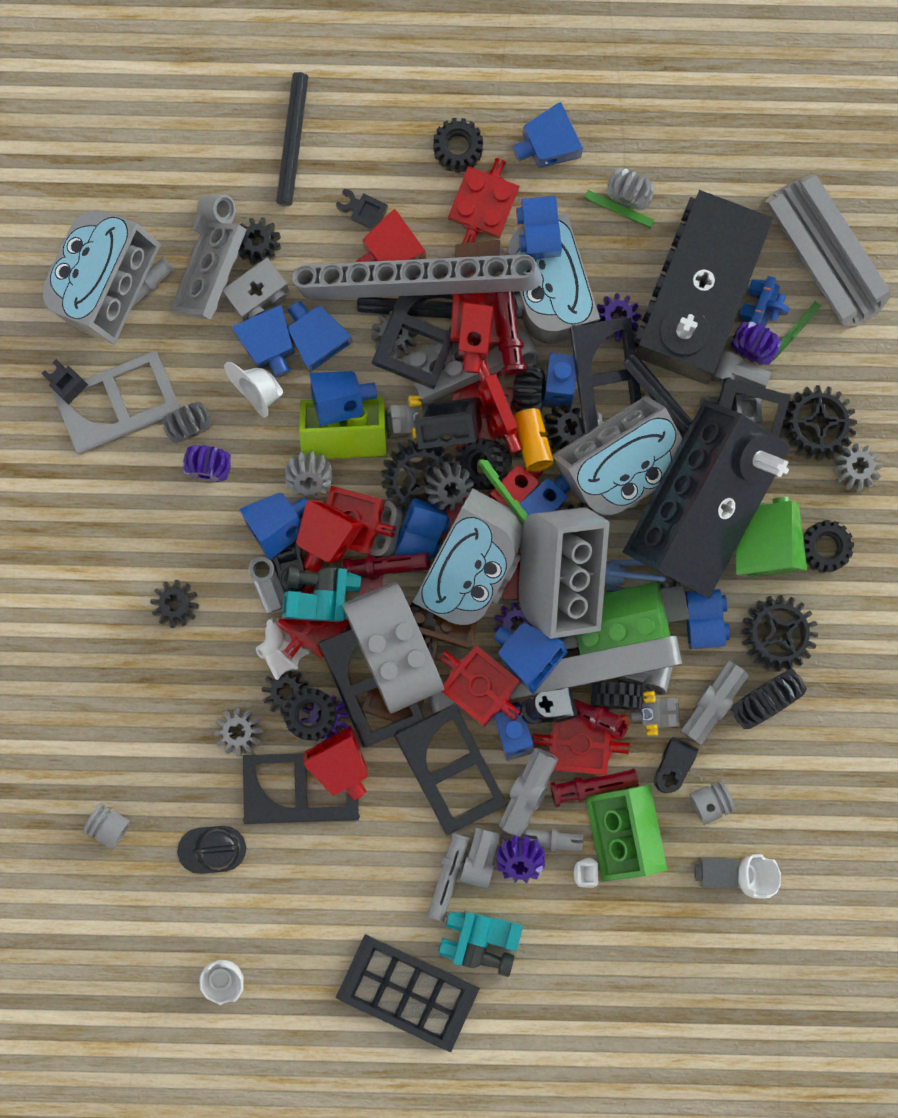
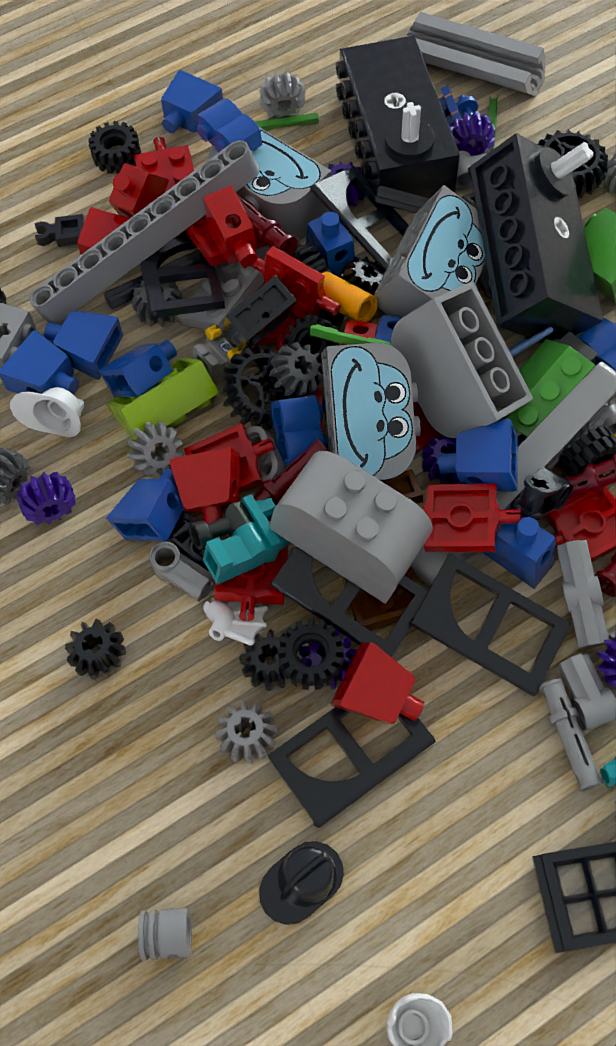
camera: 30 degrees left, 20 degrees down
(437, 226) = (135, 190): none -> red torso

